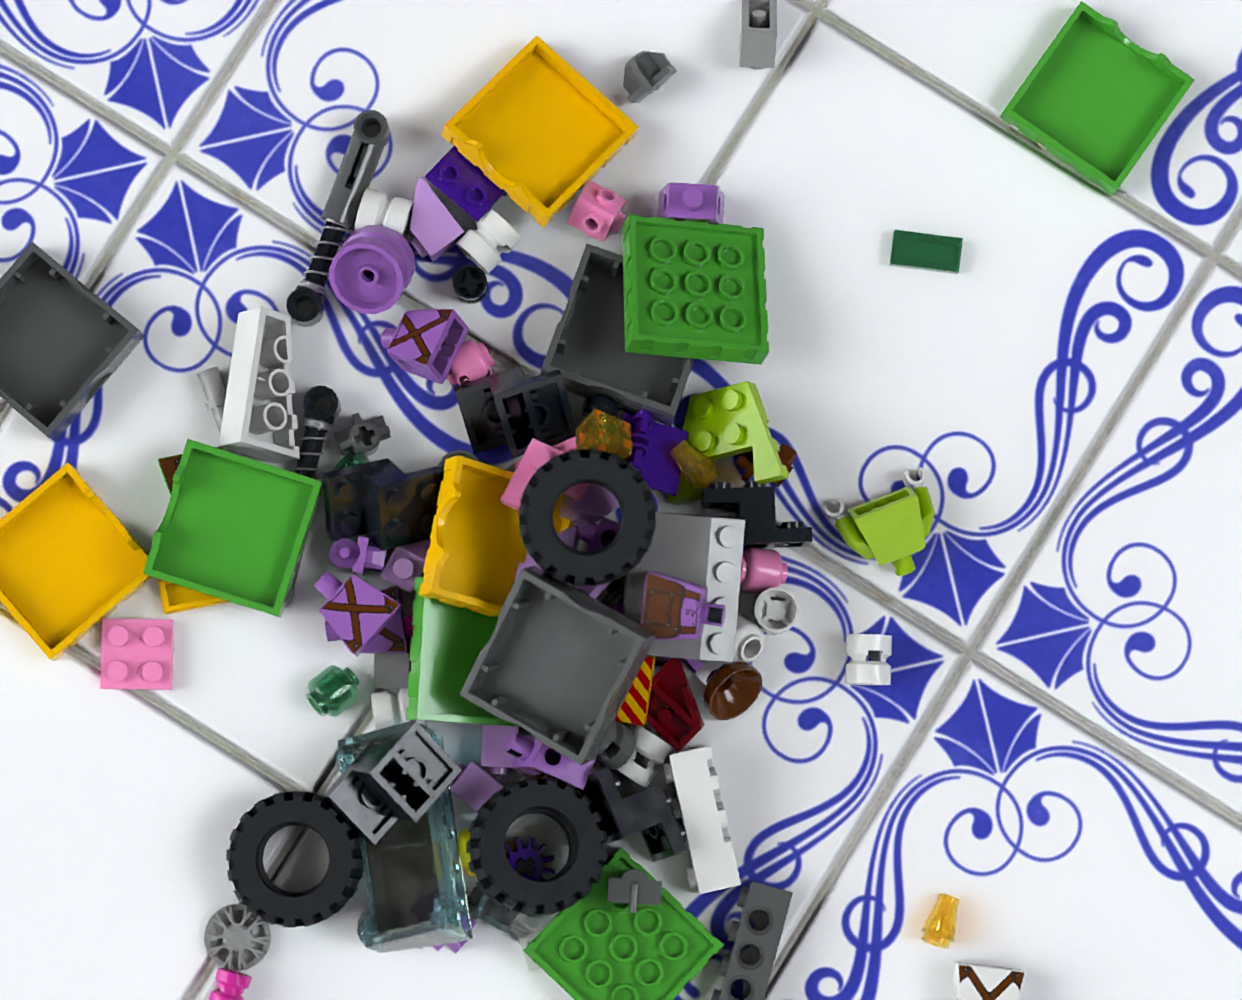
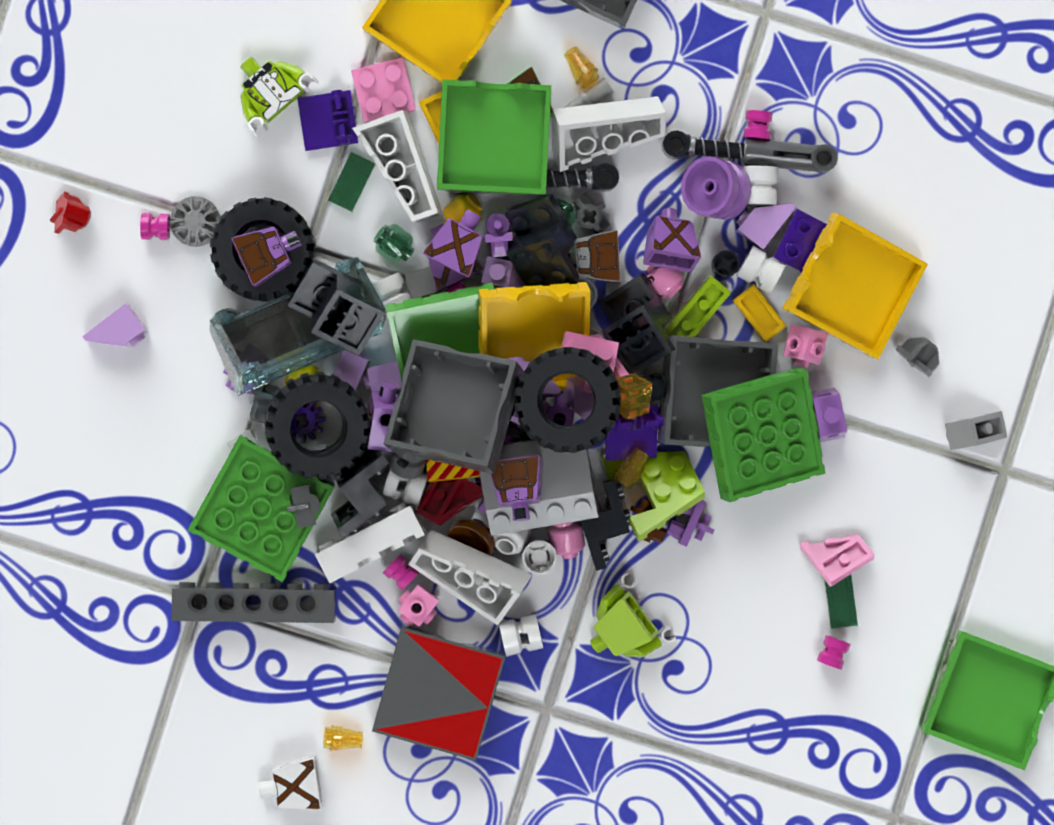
camera: 80 degrees right, 5 degrees up
(97, 795) = (270, 90): none -> torso
(155, 734) = (327, 120): none -> dark purple hinge
(179, 398) = (581, 67): none -> clear yellow cone
(229, 655) = (401, 162): none -> white wedge
(241, 724) = (351, 182): none -> clear green tile
(299, 854) = (265, 252): none -> torso
(307, 199) = (756, 130): none -> dark pink wheel
(308, 596) = (458, 206): none -> yellow head
(419, 438) = (597, 257): none -> torso
(516, 331) = (698, 309): none -> lime plate
(542, 259) = (759, 313): none -> yellow tile
(750, 790) = (400, 572): none -> dark pink wheel
(777, 702) = (470, 575): none -> white wedge
(785, 776) = (425, 599): none -> bright pink brick
(792, 422) = (684, 532): none -> medium lavender hips
(871, 240) = (838, 557): none -> bright pink wing
(915, 782) = (438, 692): none -> tile
(988, 276) = (833, 653): none -> dark pink wheel

